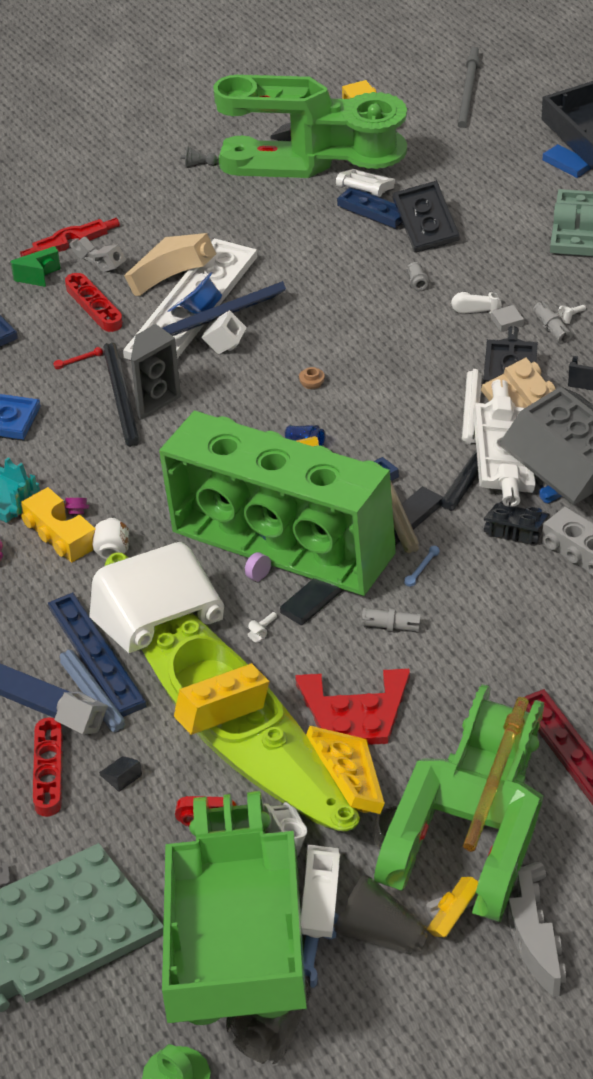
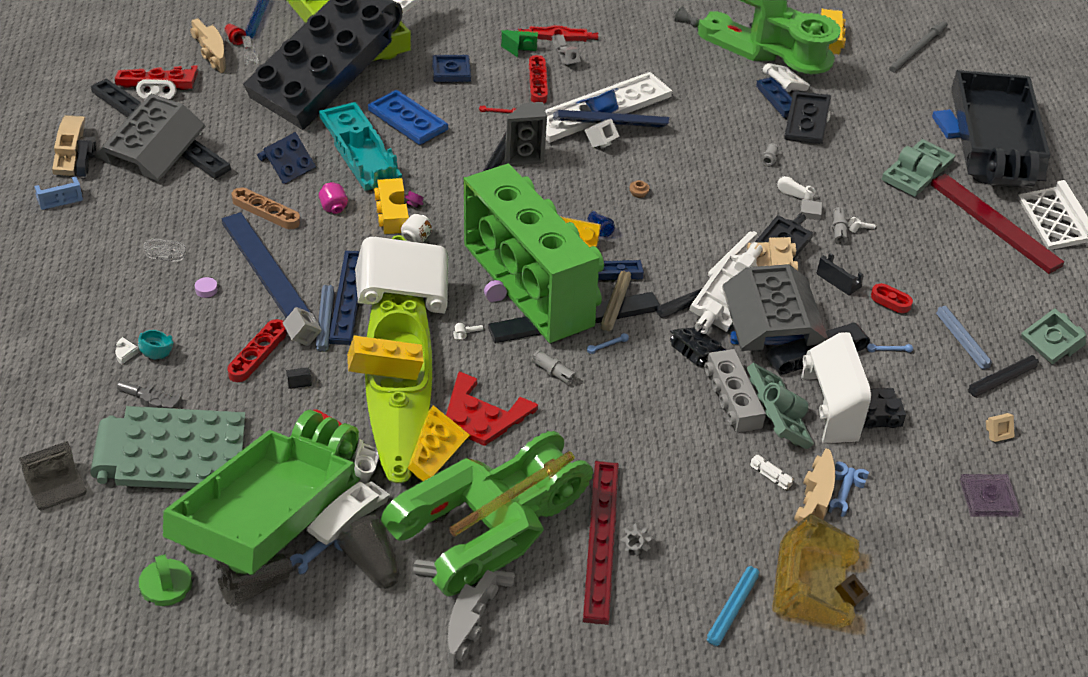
camera: 25 degrees right, 0 degrees up
(169, 258) = (606, 71): tan arch -> none
(452, 907) = (423, 569): yellow plate -> none

